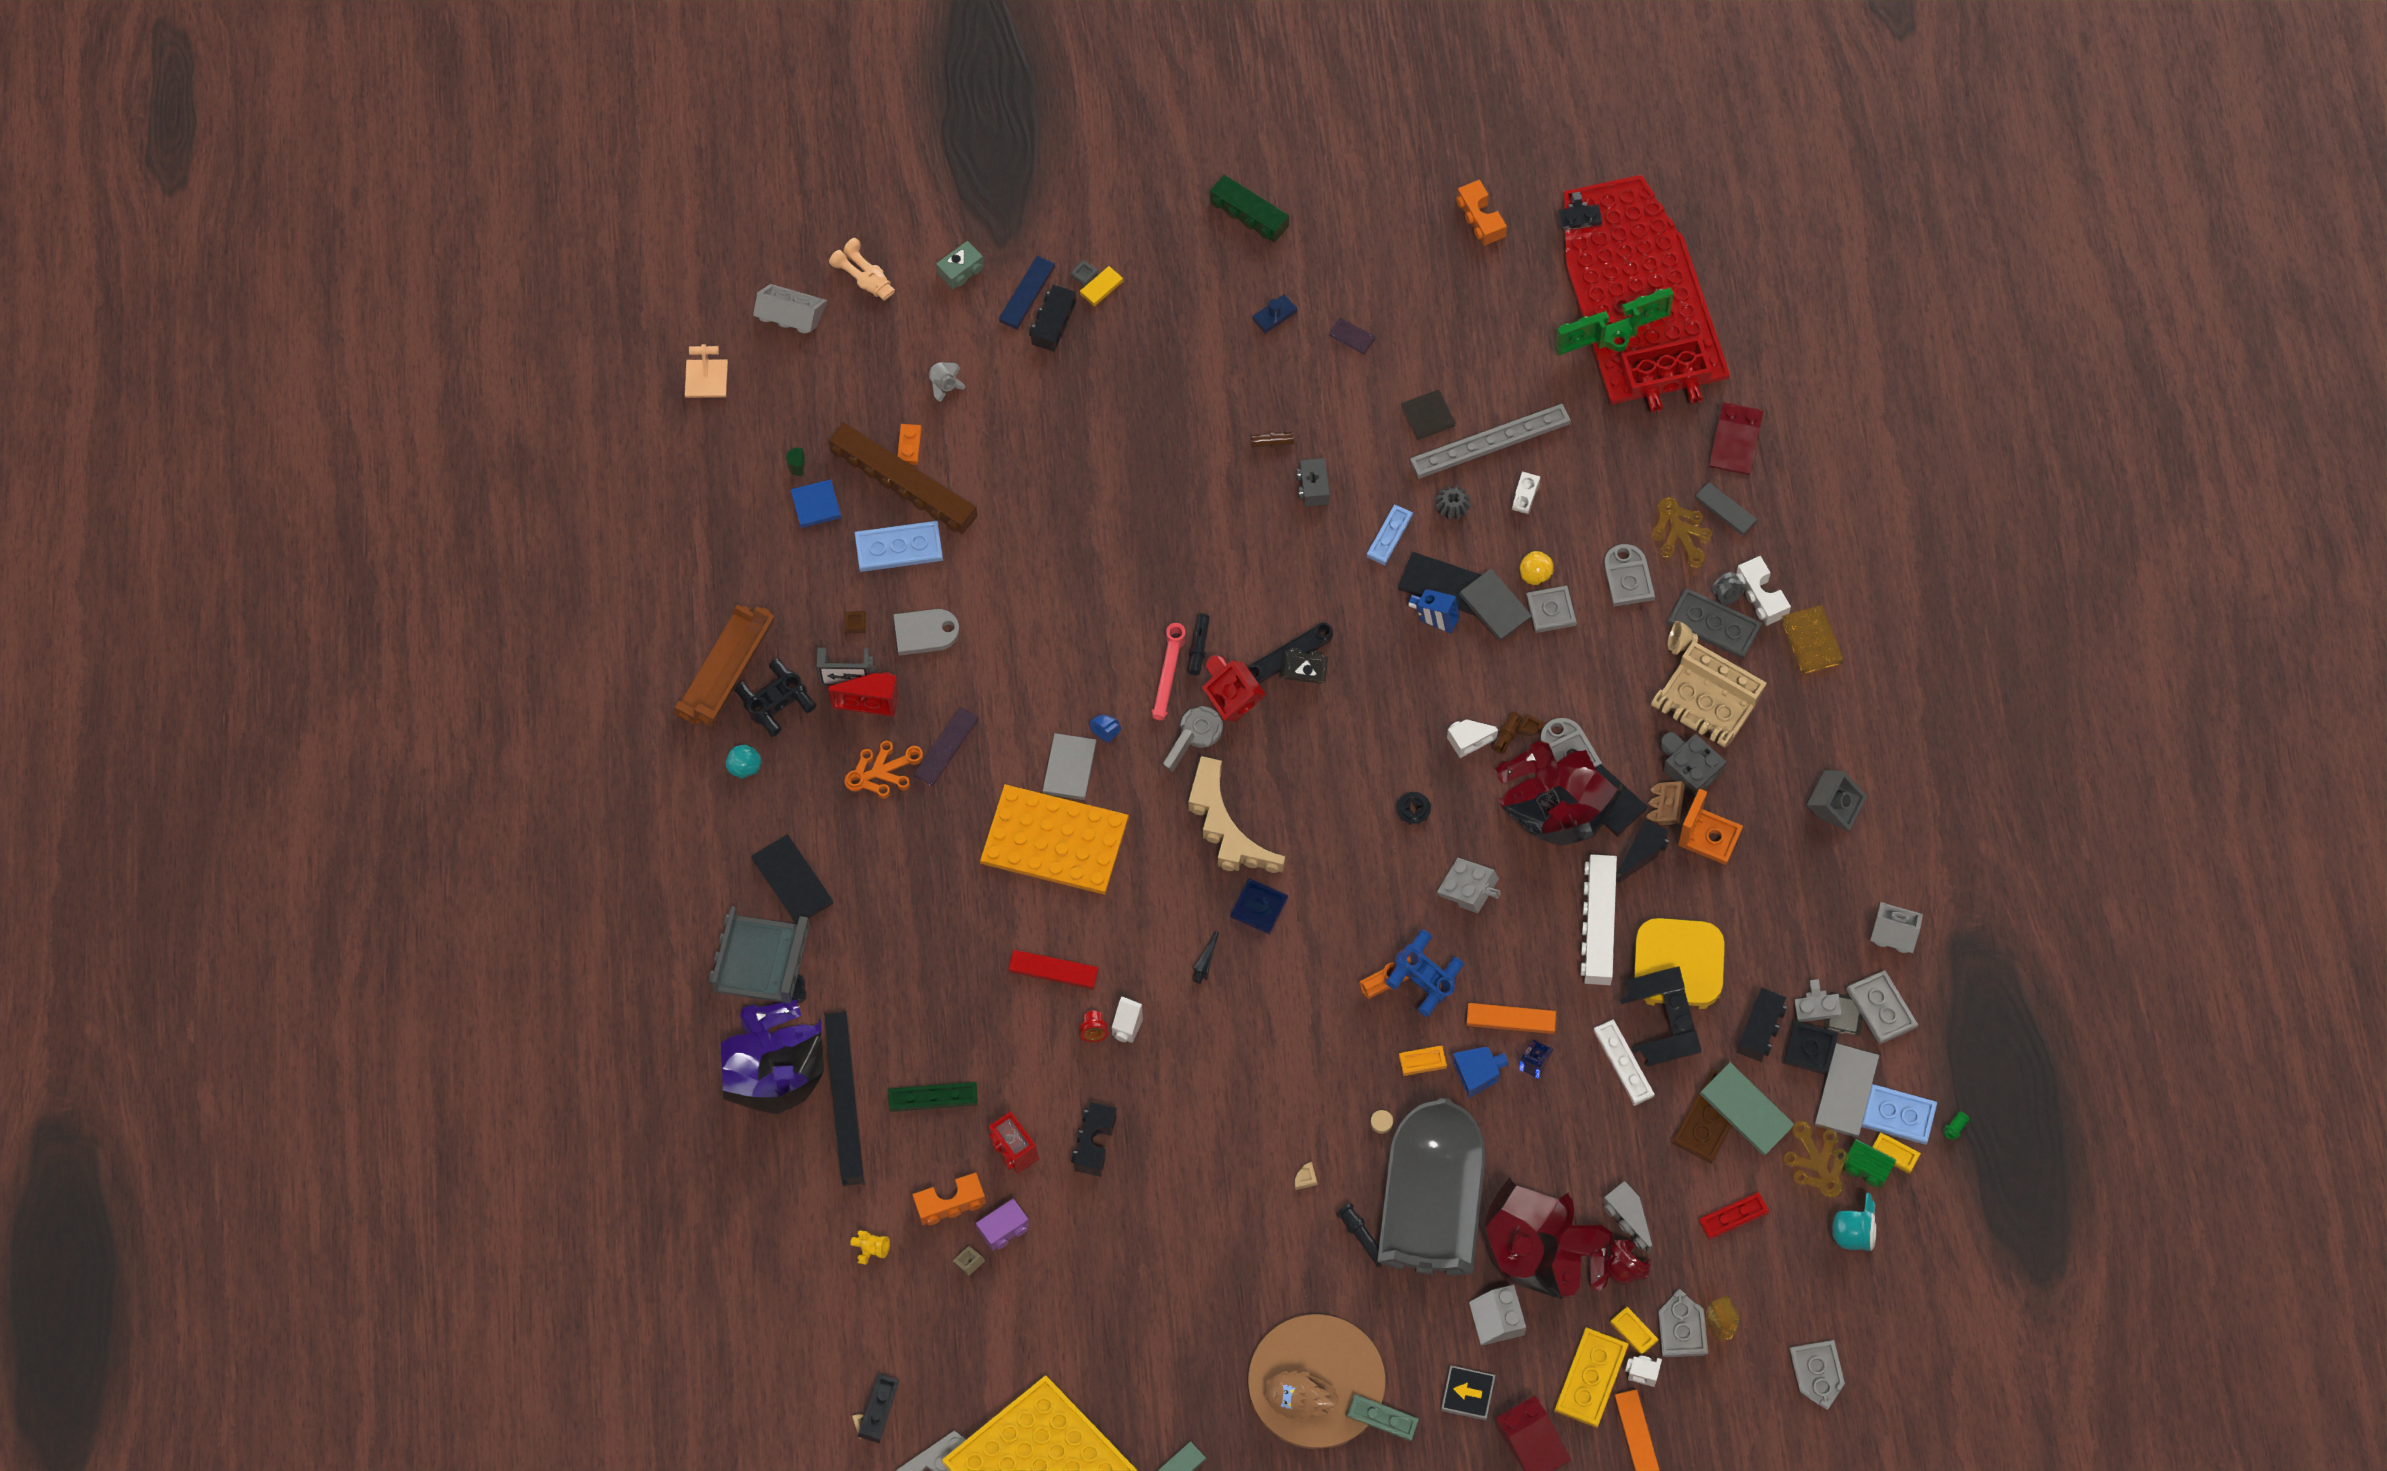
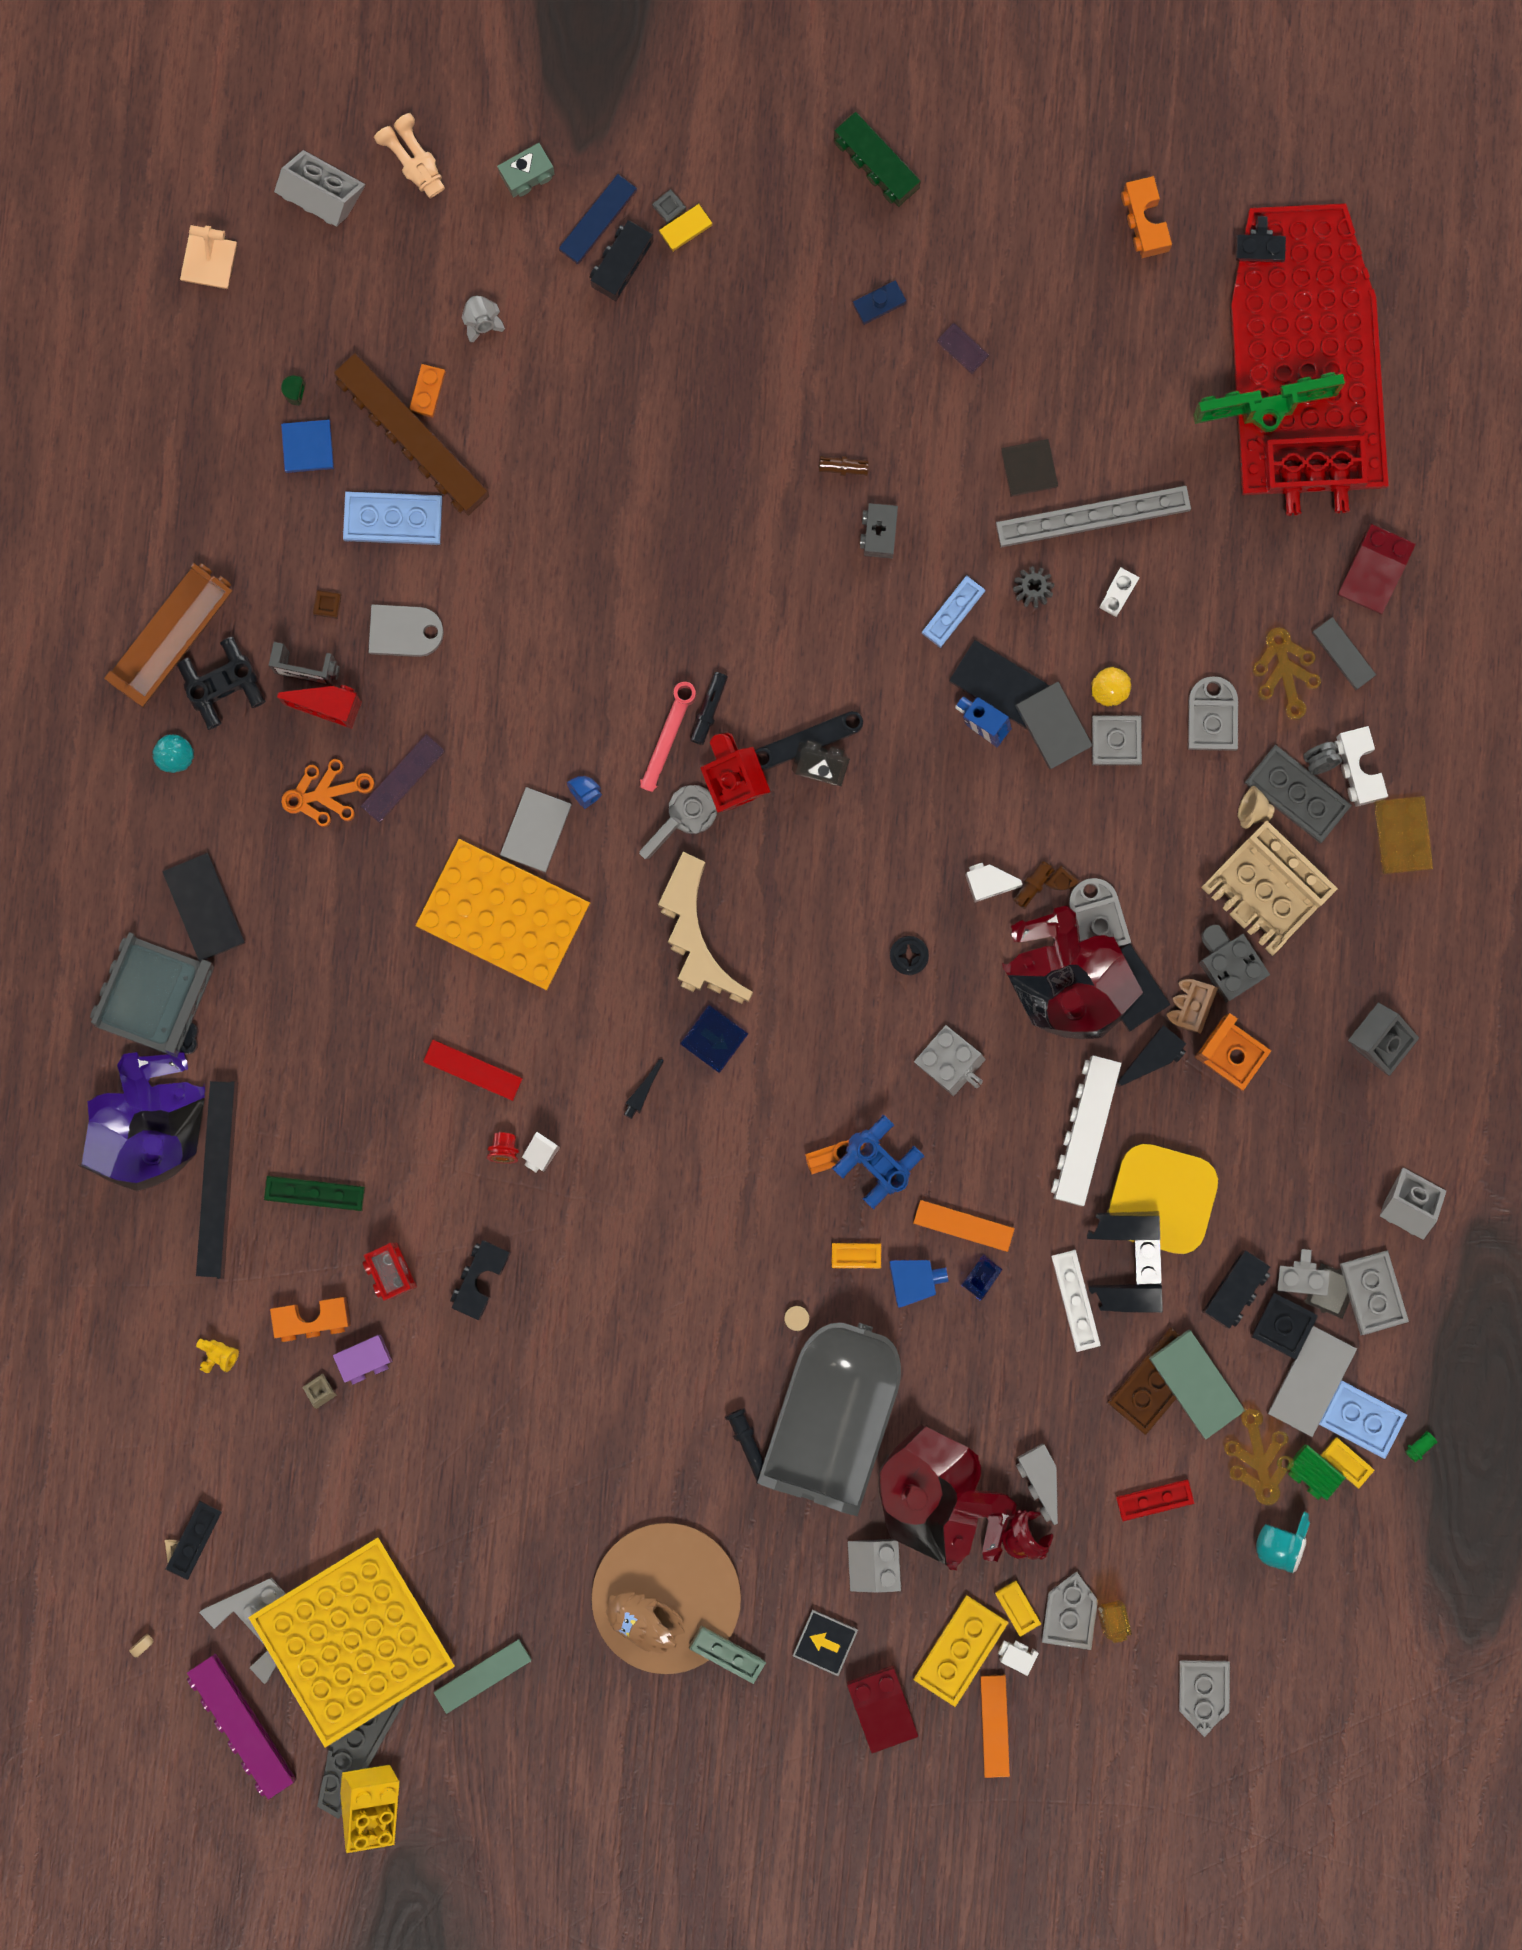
camera: 10 degrees right, 20 degrees up
(1305, 1177) = (701, 1365): tan tile -> none

